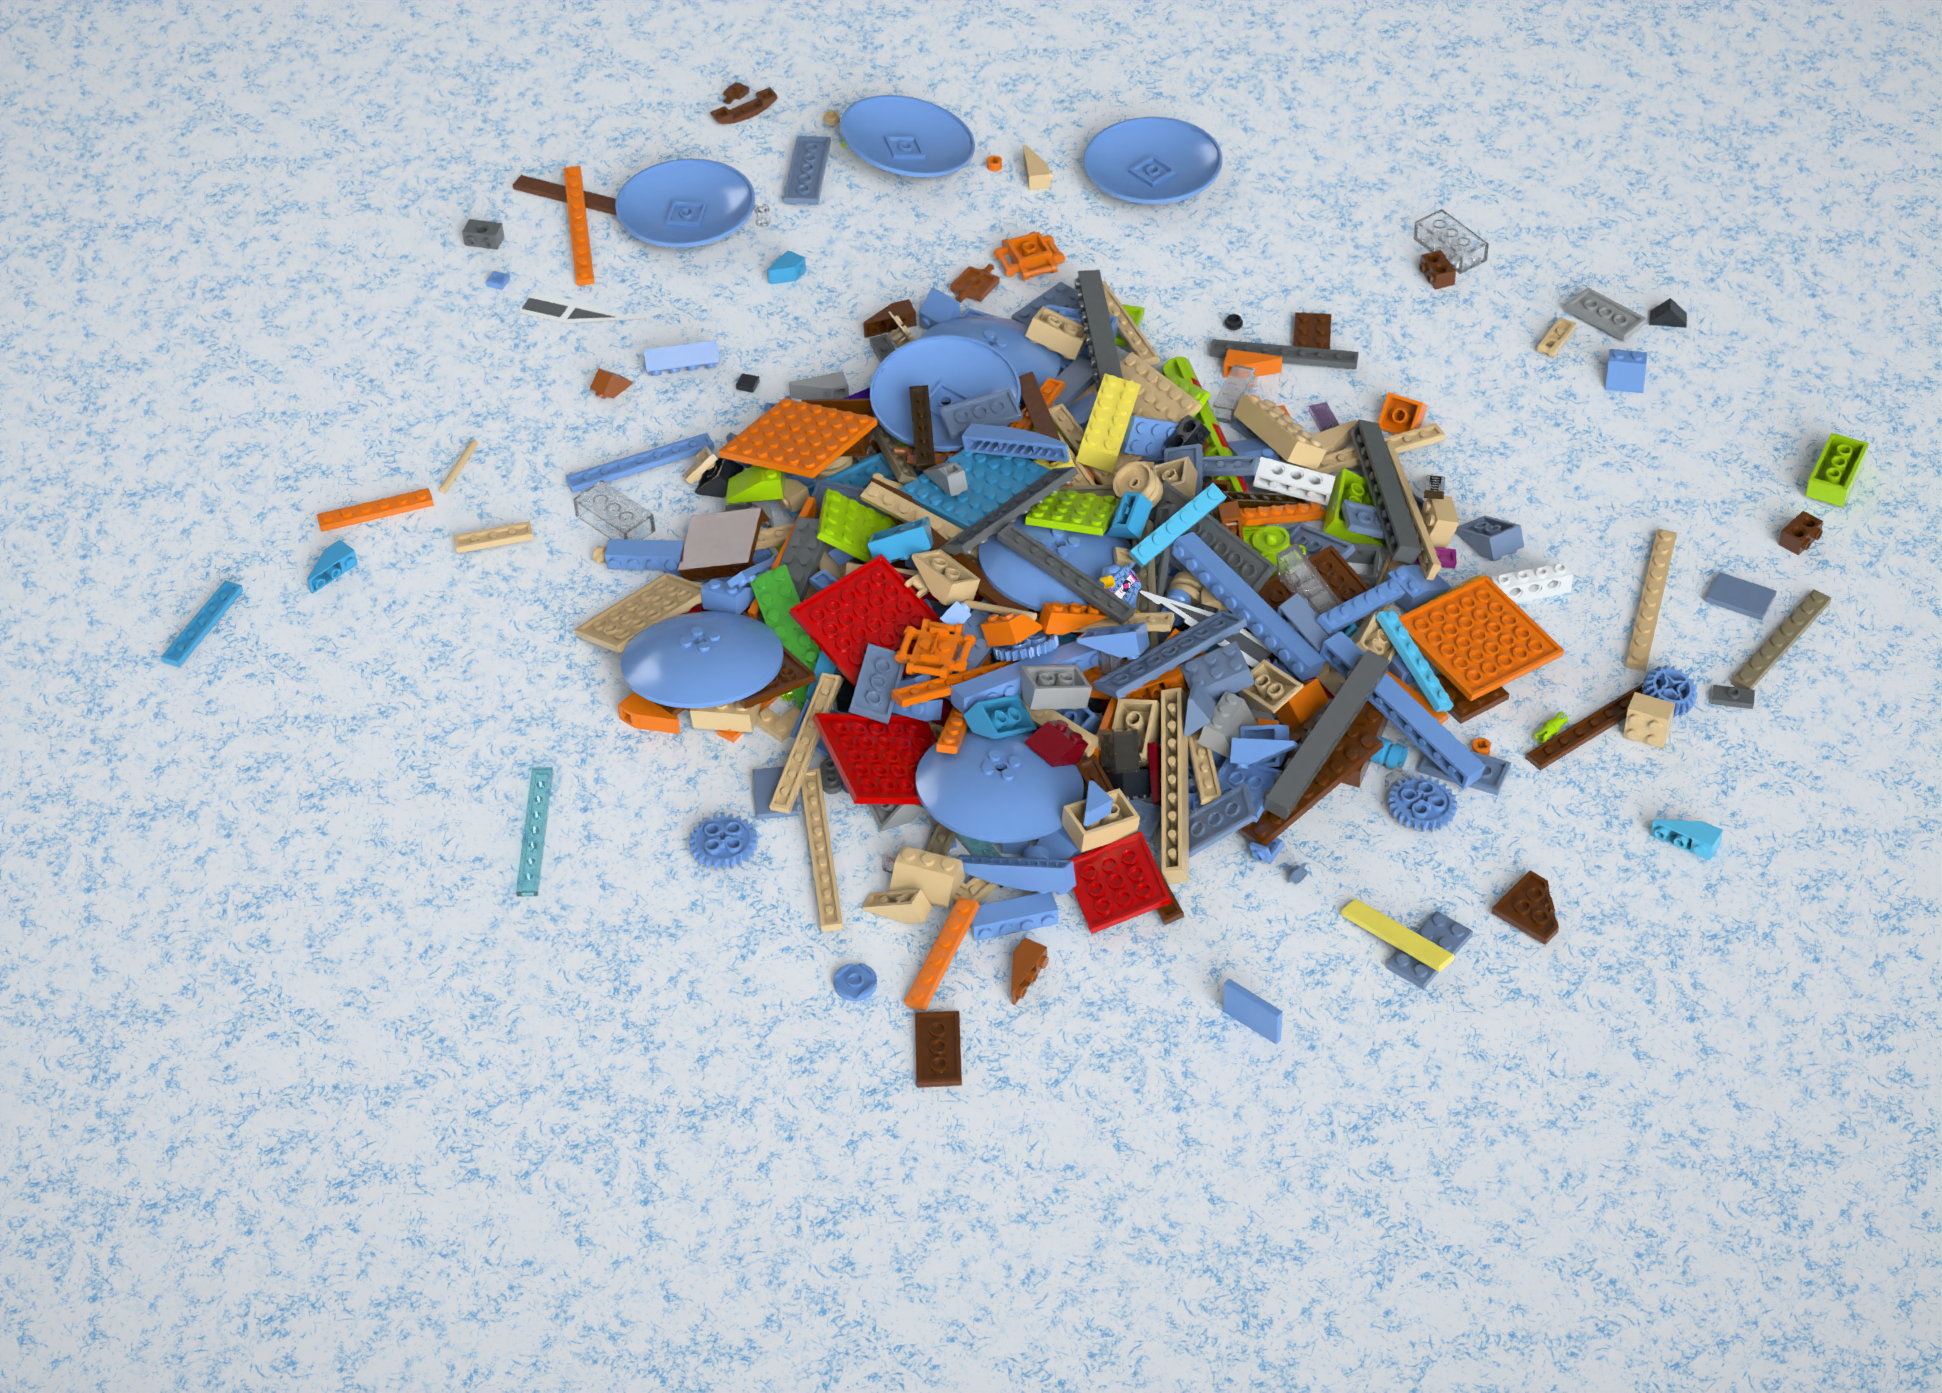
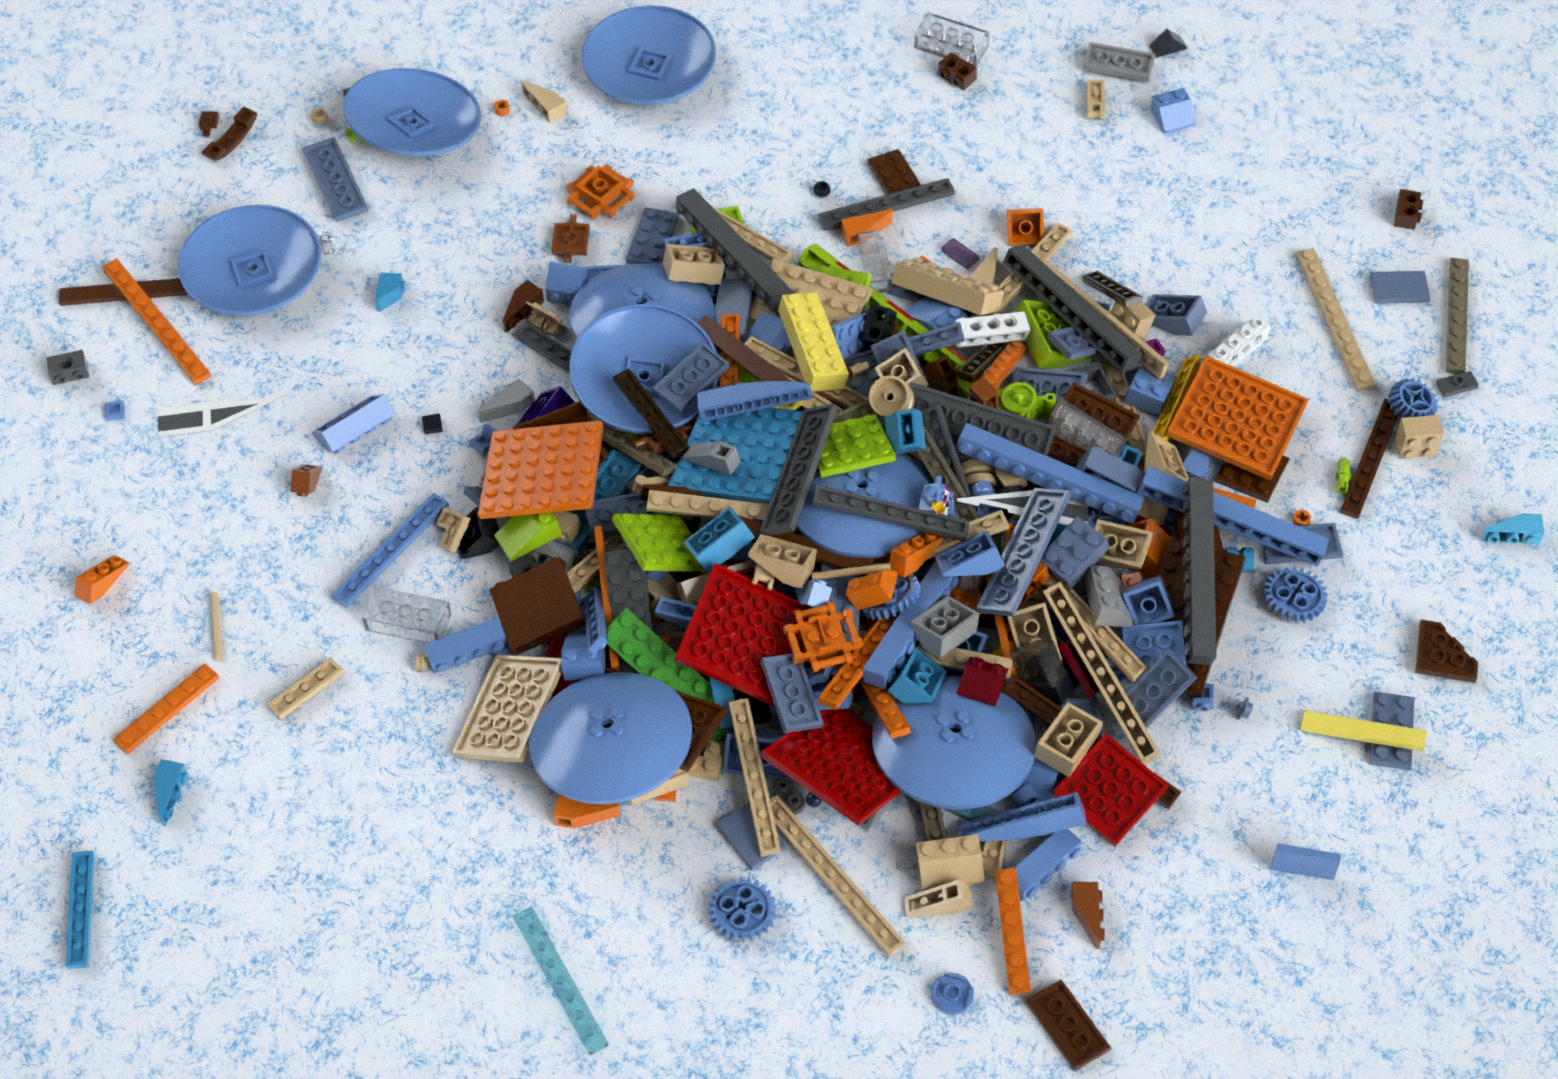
camera: 30 degrees left, 10 degrees up
(387, 396) = (97, 580): none -> orange slope
(1097, 804) = (1065, 728): medium blue slope -> none
(1122, 557) = (921, 472): tan plate -> none
(1177, 525) = (952, 423): medium azure plate -> none
(1199, 709) = (1085, 597): sand blue slope -> none
(1257, 751) = (1153, 614): medium blue slope -> none
(1360, 606) = (1139, 432): medium blue plate -> none
(1414, 661) = (1206, 463): medium azure plate -> none
(1837, 469) = (1397, 139): lime brick -> none

